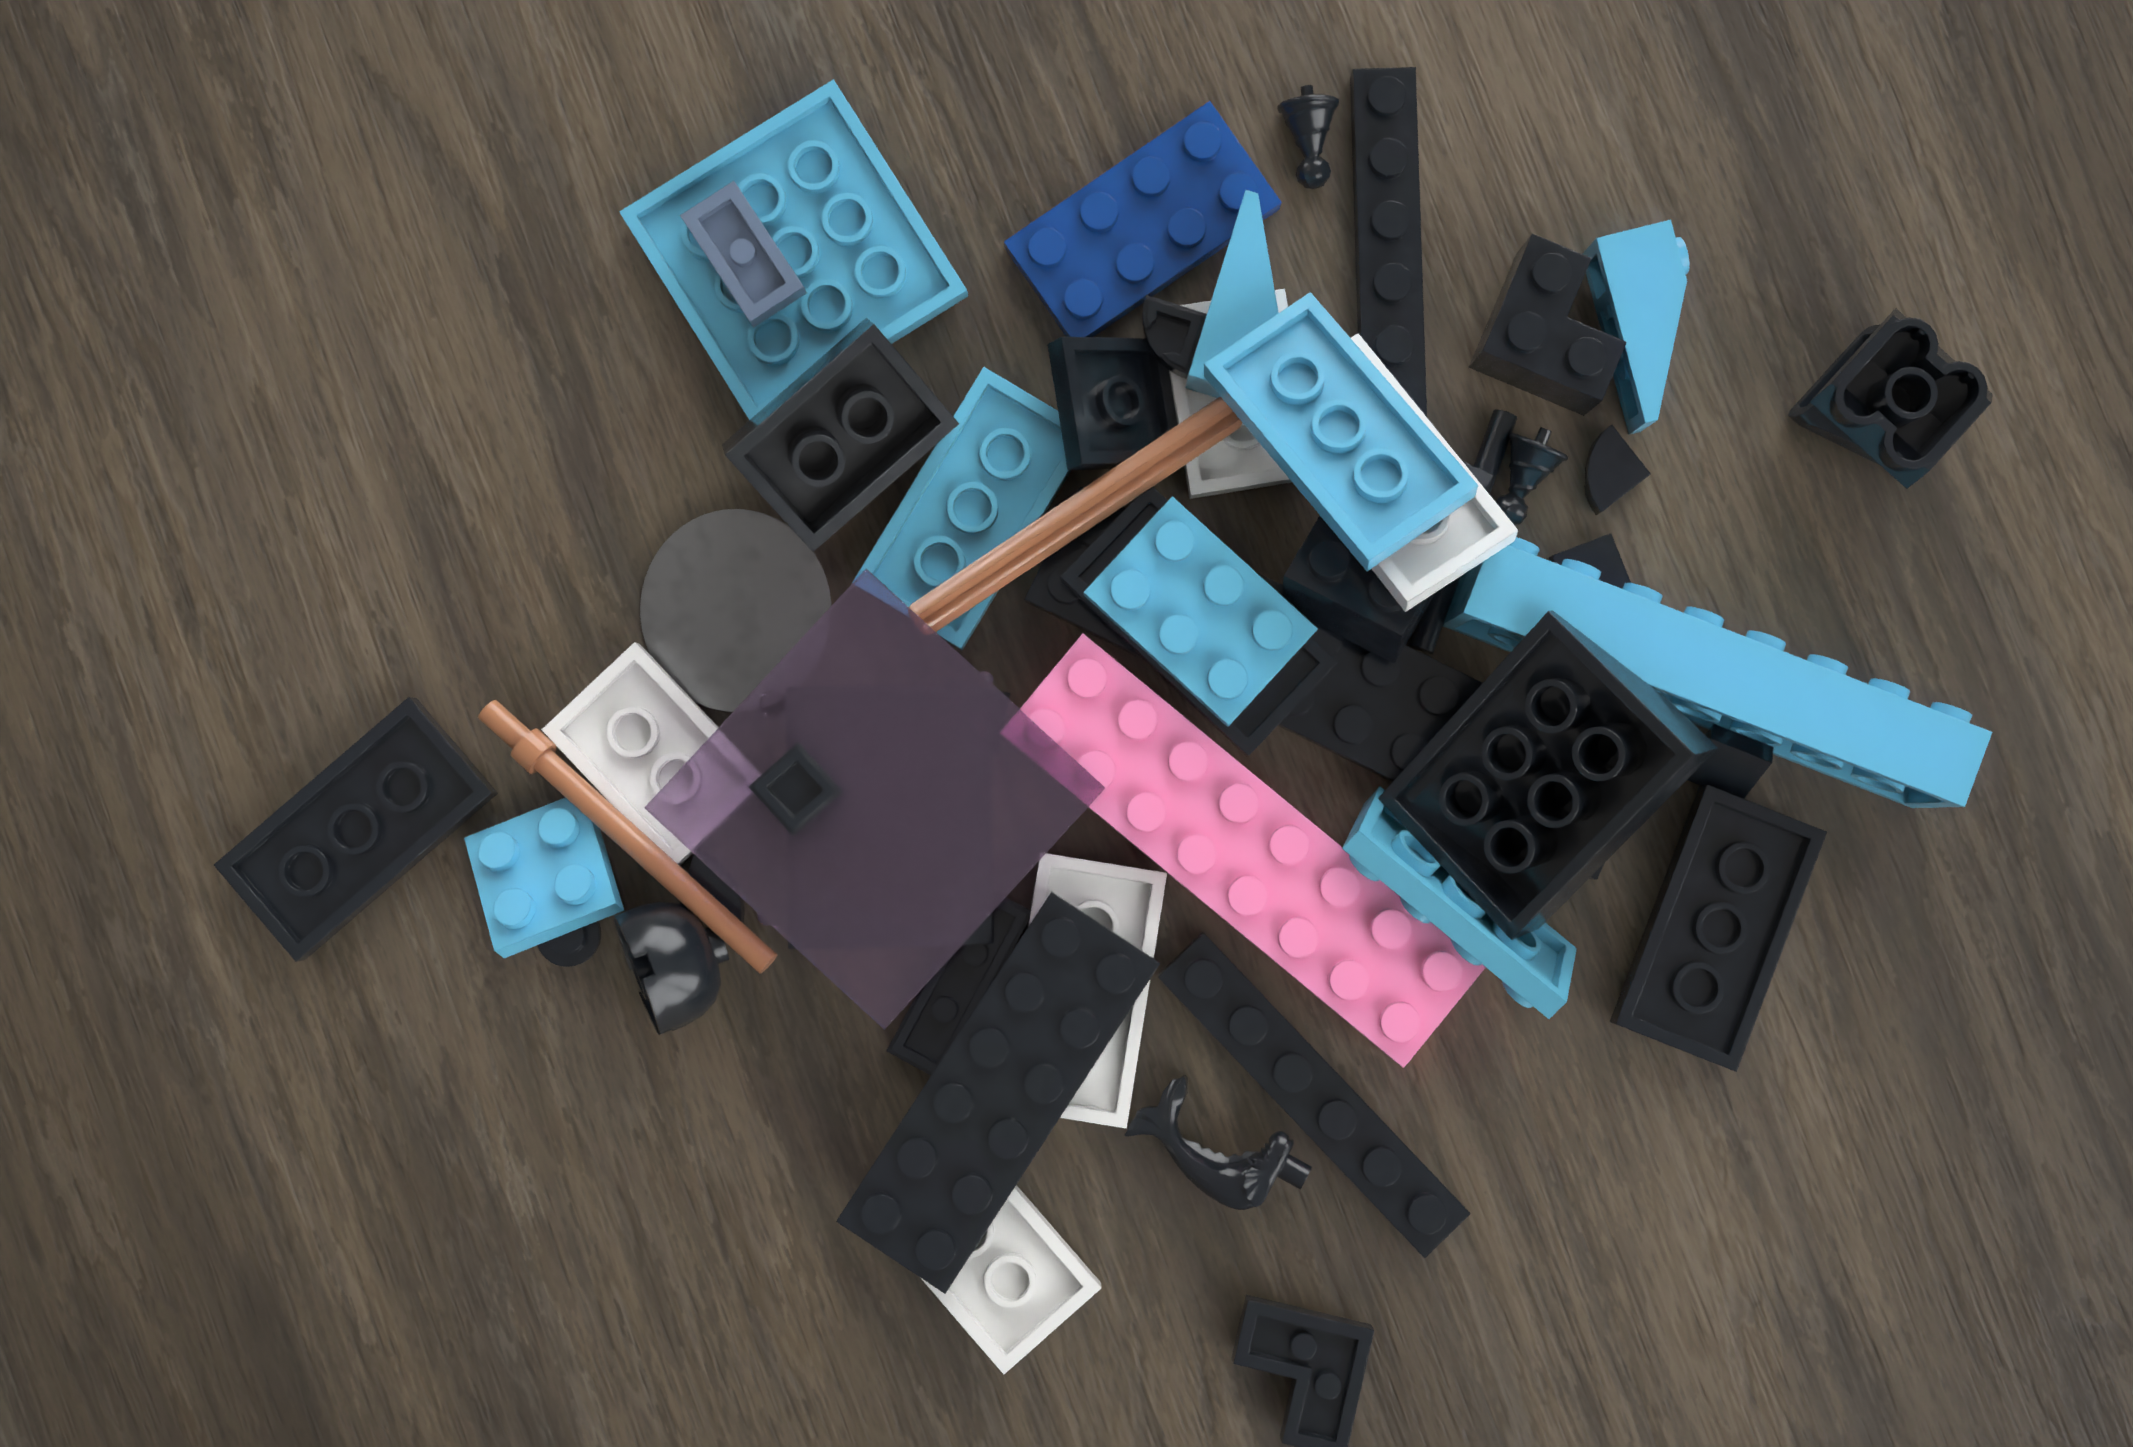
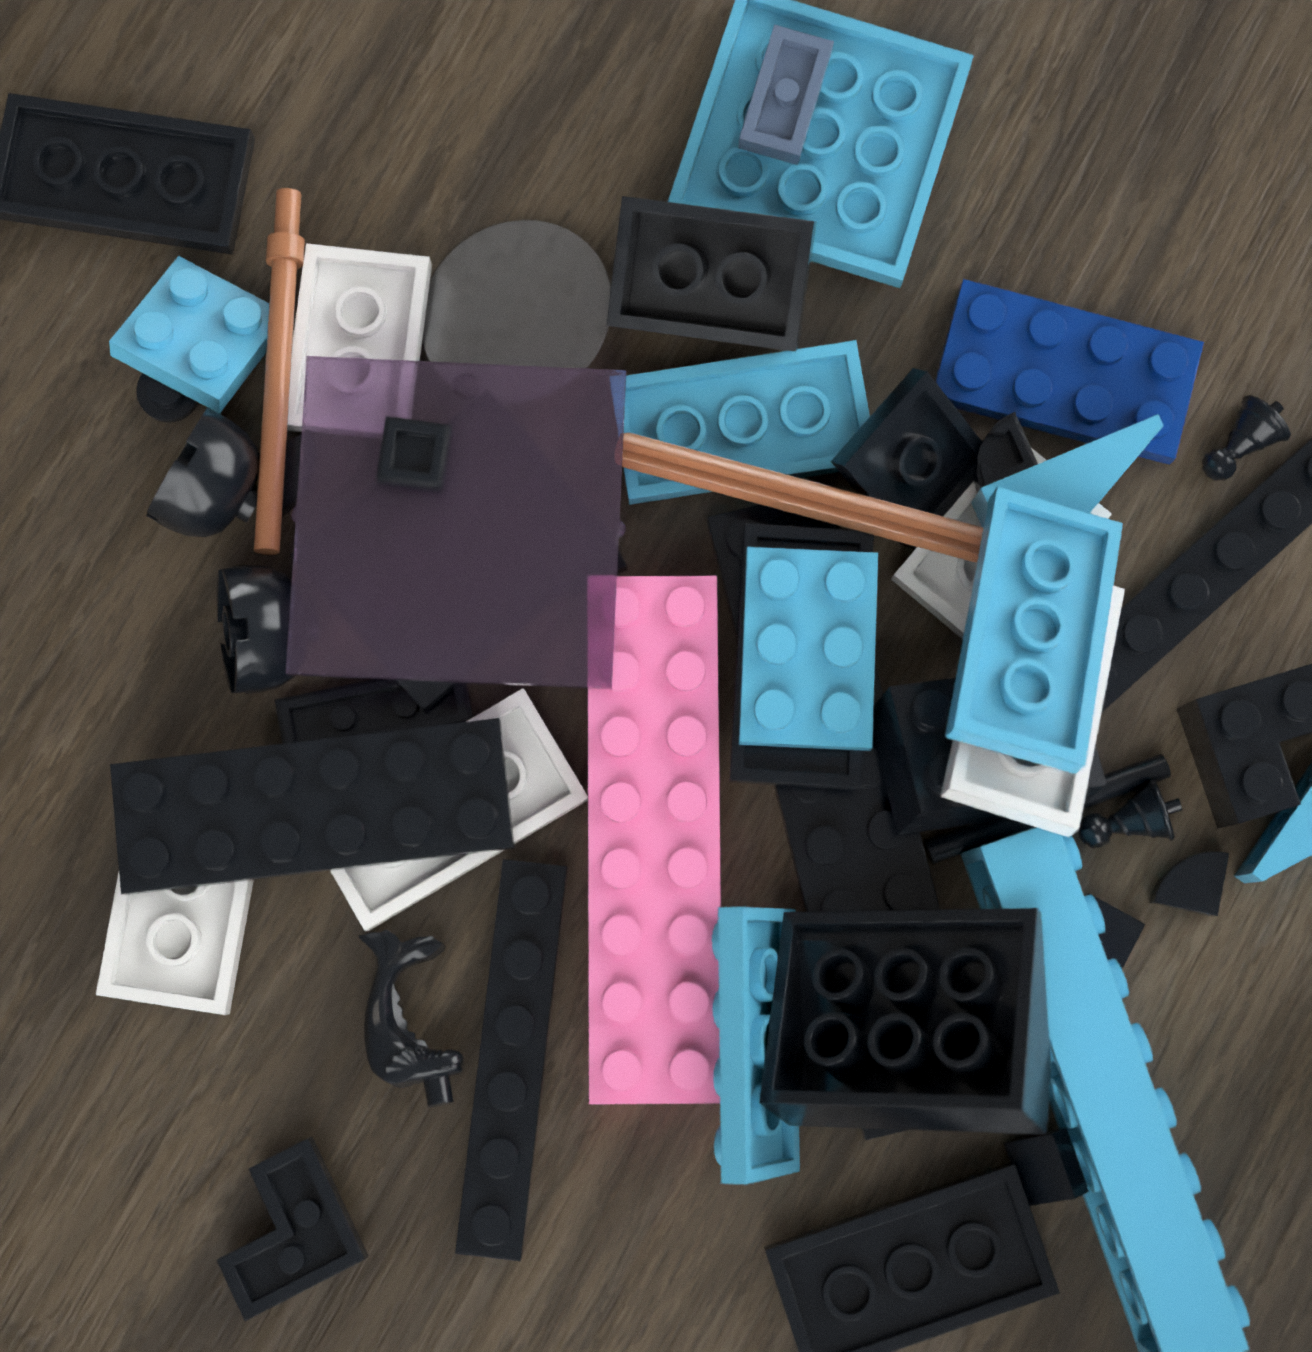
camera: 45 degrees right, 5 degrees down
(819, 1019) = (255, 621): none -> black cylinder

